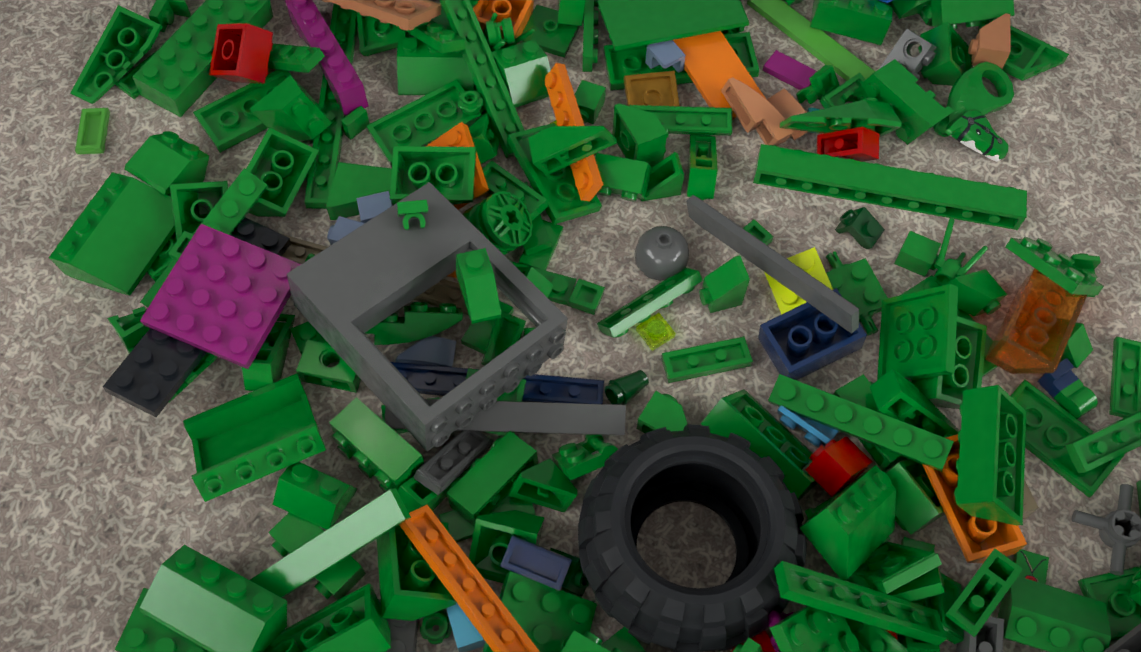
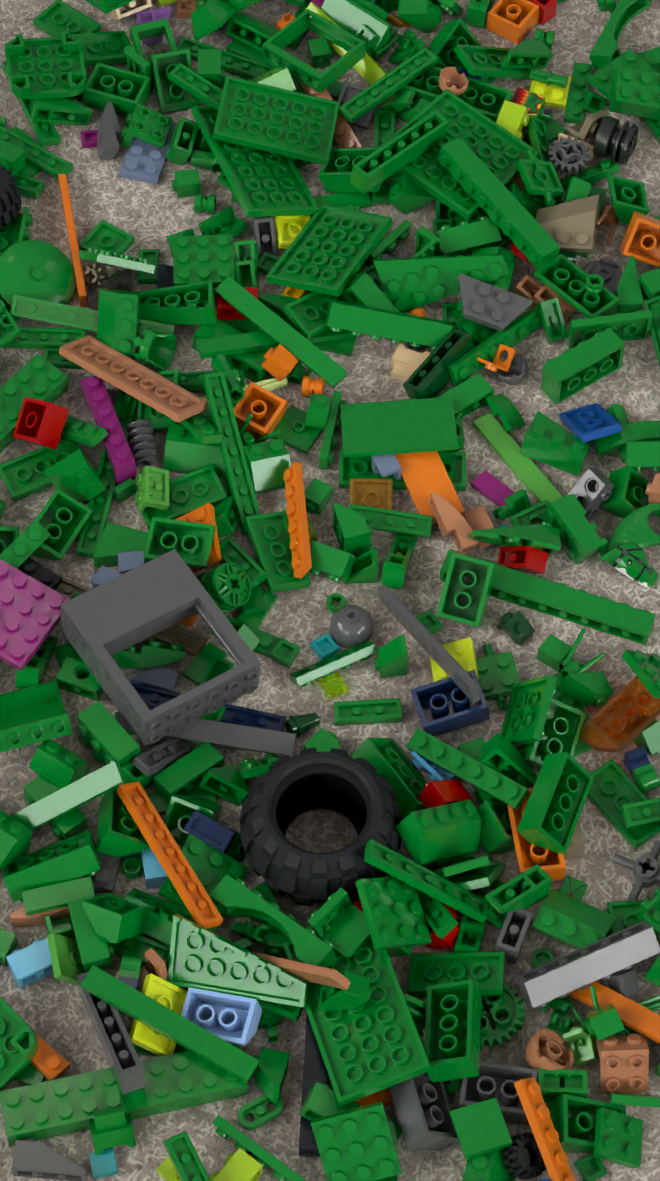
camera: 10 degrees right, 5 degrees down
(368, 64) = (142, 443): none -> dark grey piece
(389, 115) = (152, 488): none -> bright green bracket
(412, 209) = (158, 568): green tile -> none
(473, 106) = (219, 490): green plate -> none
(478, 285) = (198, 630): green slope -> none
(494, 33) = (248, 430): green wheel -> none
(565, 145) = (285, 532): green slope -> none
(633, 282) = (324, 646): none -> teal tile
(636, 218) = (335, 597): none -> green bush
(798, 188) = (467, 589): none -> green brick

